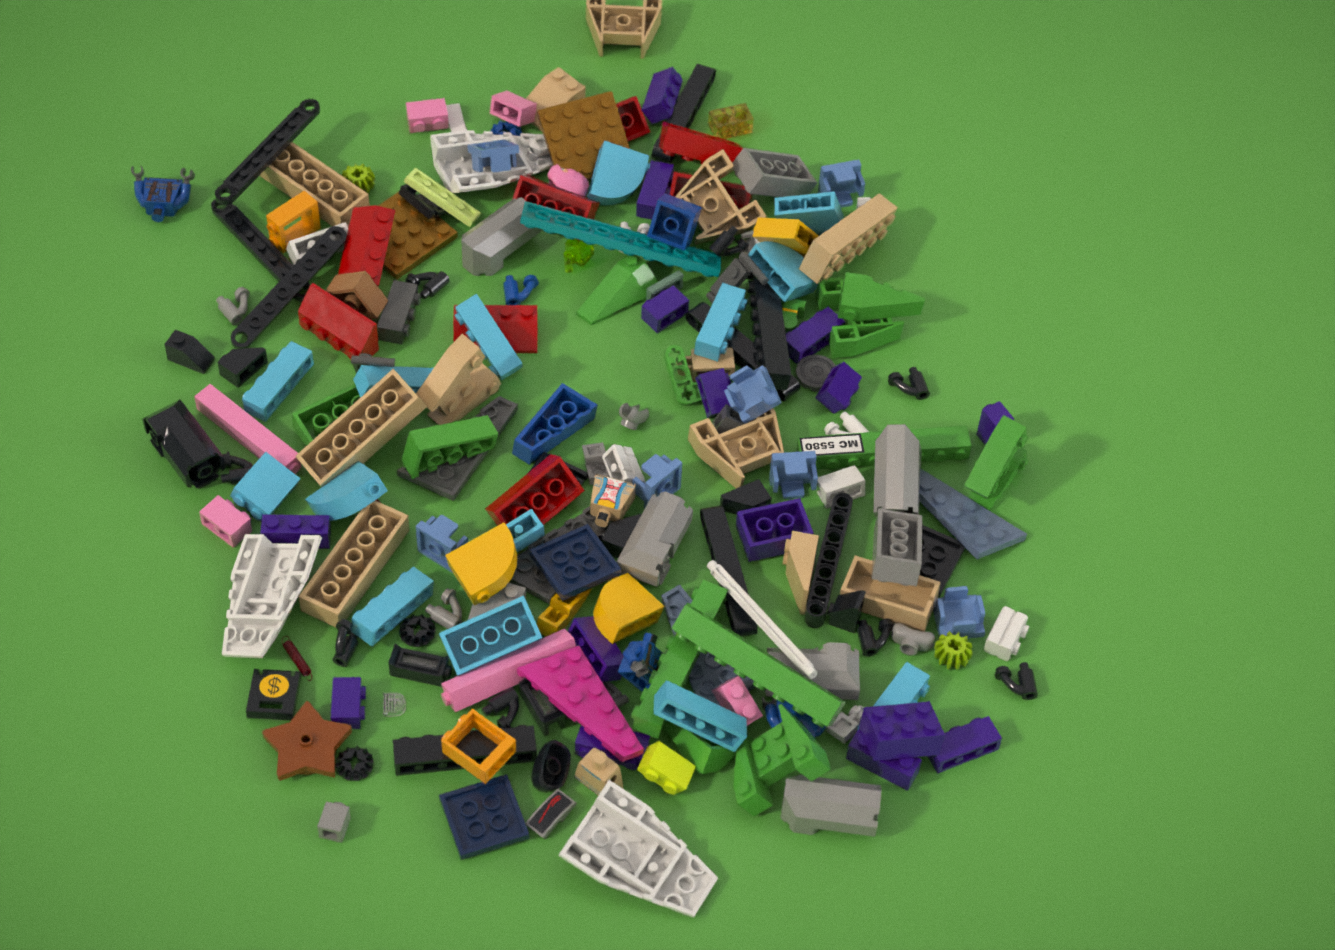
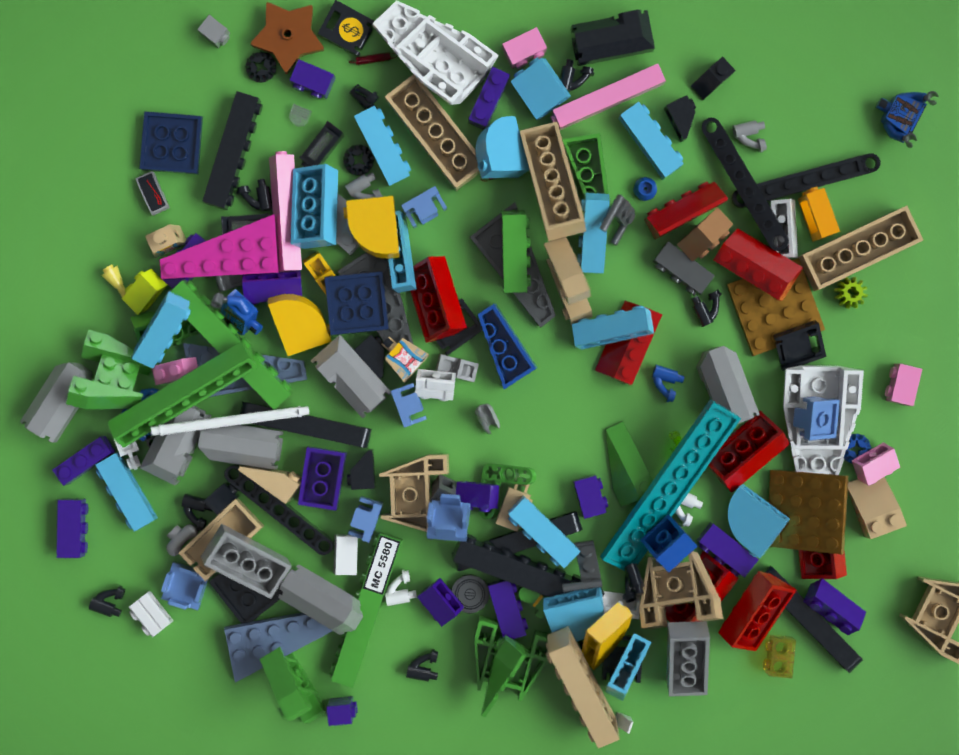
camera: 115 degrees right, 35 degrees up
(267, 151) = (904, 218): black plate -> none
(326, 376) = (642, 194): none -> blue plate
(442, 197) = (792, 355): yellowish green tile -> none
(455, 118) = (894, 411): white sticker -> none
(492, 764) = (194, 149): light orange window -> none
(539, 146) = (820, 467): white tile -> none
(551, 766) = (187, 208): black piece -> none
(568, 180) = (763, 474): bright pink piece -> none
(637, 853) = (85, 236): white wedge -> none
(668, 811) = (113, 276): none -> light yellow cone
(674, 279) = (613, 510): sand green tile -> none
(779, 597) = (242, 445): none -> light grey brick
(843, 179) = (658, 717): medium blue panel -> none
(901, 731) = (84, 479): dark purple brick -> none
(953, 650) = (148, 568): lime gear -> none

